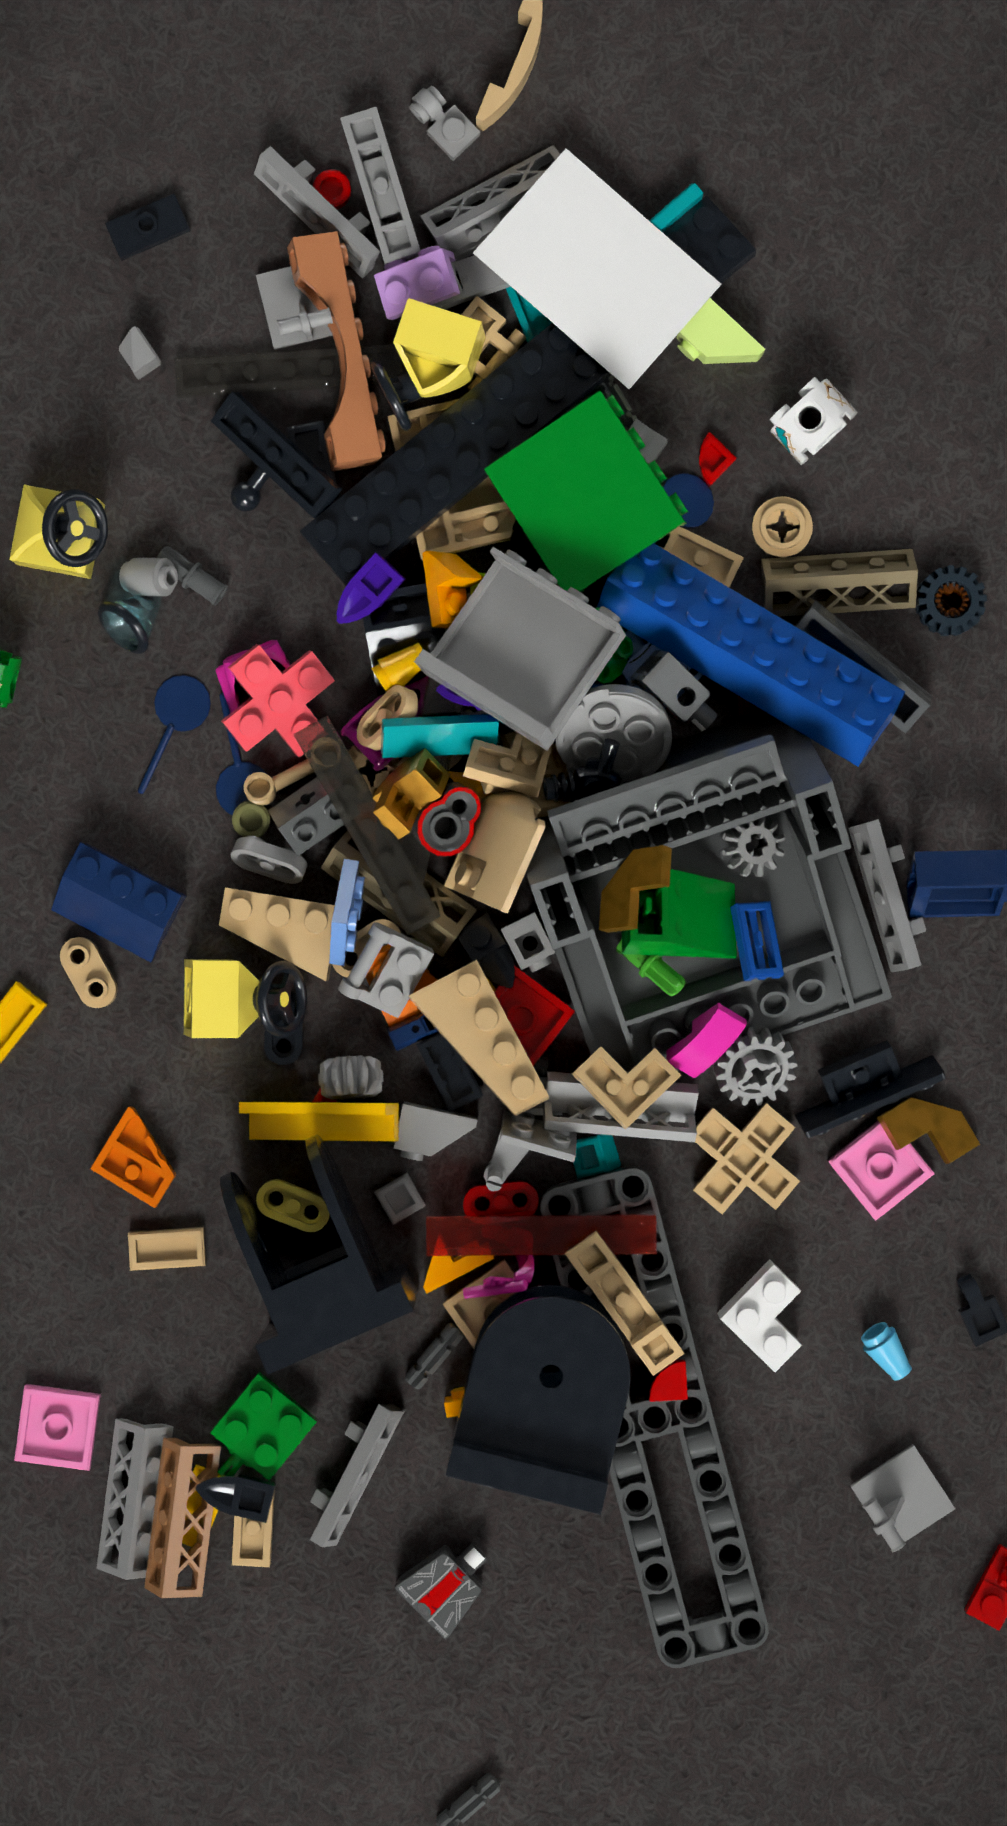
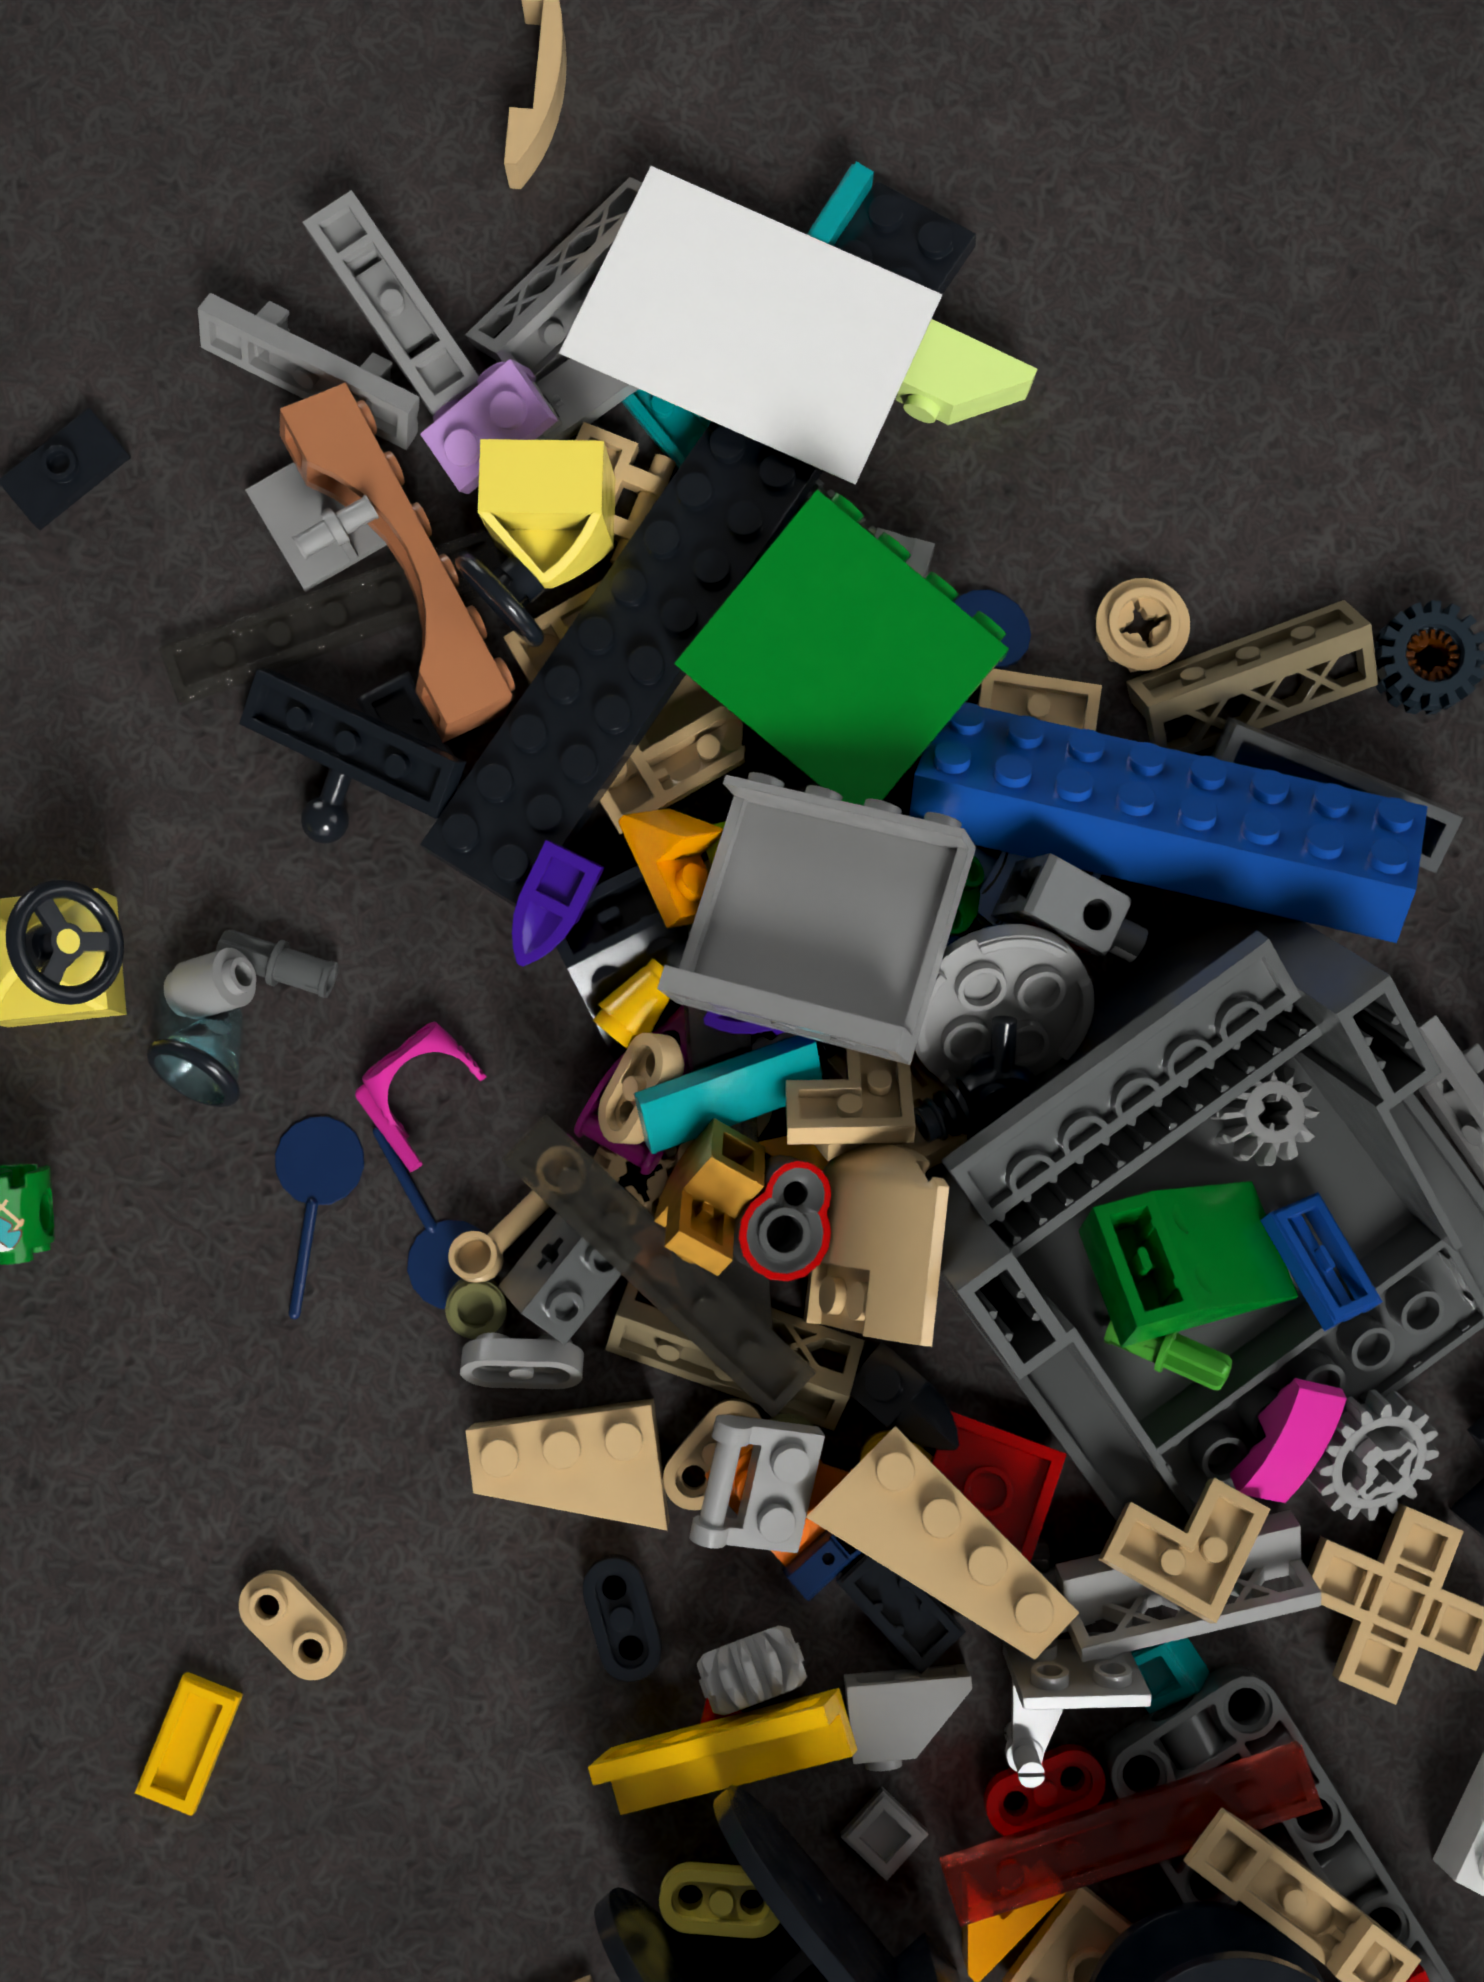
camera: 15 degrees left, 5 degrees down
(117, 901) = (304, 1498): dark blue slope -> none
(135, 1160) = (451, 1906): orange wing -> none
(138, 353) = (102, 655): light grey slope -> none
(227, 998) = (522, 1605): light yellow piece -> none
(275, 697) = (458, 1109): coral plate -> none
(333, 187) = (326, 328): red tile -> none
(346, 912) = (667, 1412): medium blue plate -> none
(450, 130) = (471, 201): light grey plate -> none
(500, 1285) = (1087, 1940): dark pink helmet -> none
(518, 931) = (977, 1390): light grey brick -> none
(640, 871) = (1097, 1258): pearl gold tile -> none
(714, 459) = (1008, 556): red tile -> none
(817, 396) = (1163, 427): white brick -> none

